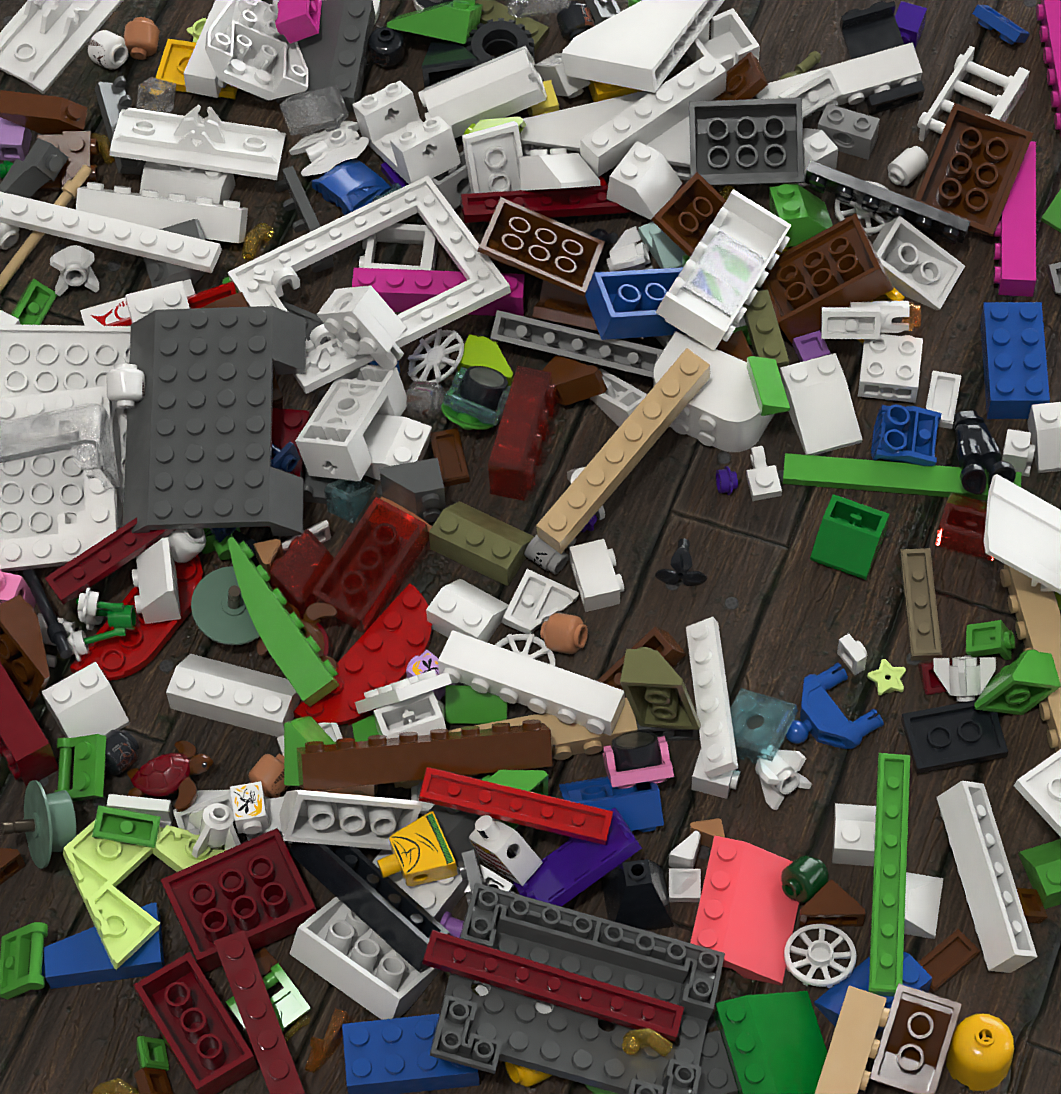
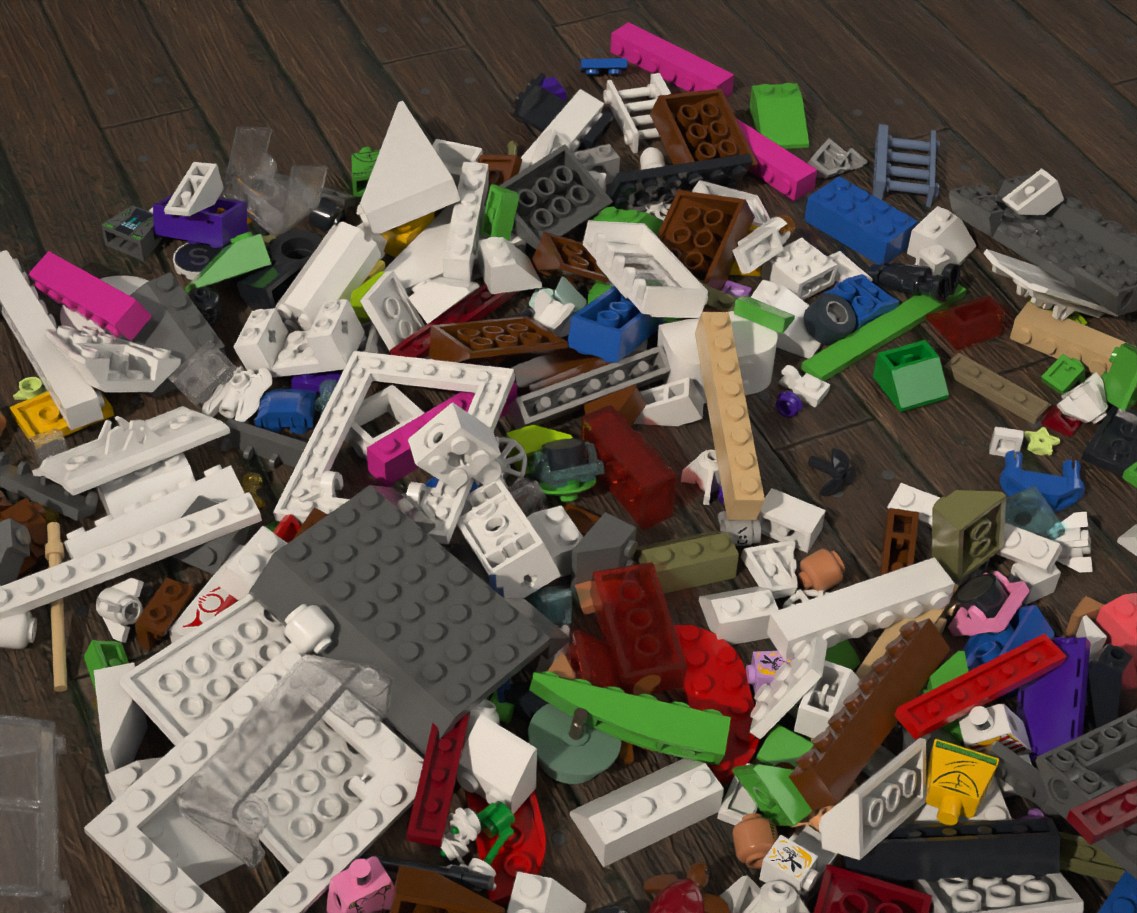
camera: 50 degrees left, 15 degrees down
(93, 291) = (162, 612): none -> reddish brown bracket
(680, 128) = (499, 212): none -> bright green slope
(861, 430) = (829, 319): none -> black wheel

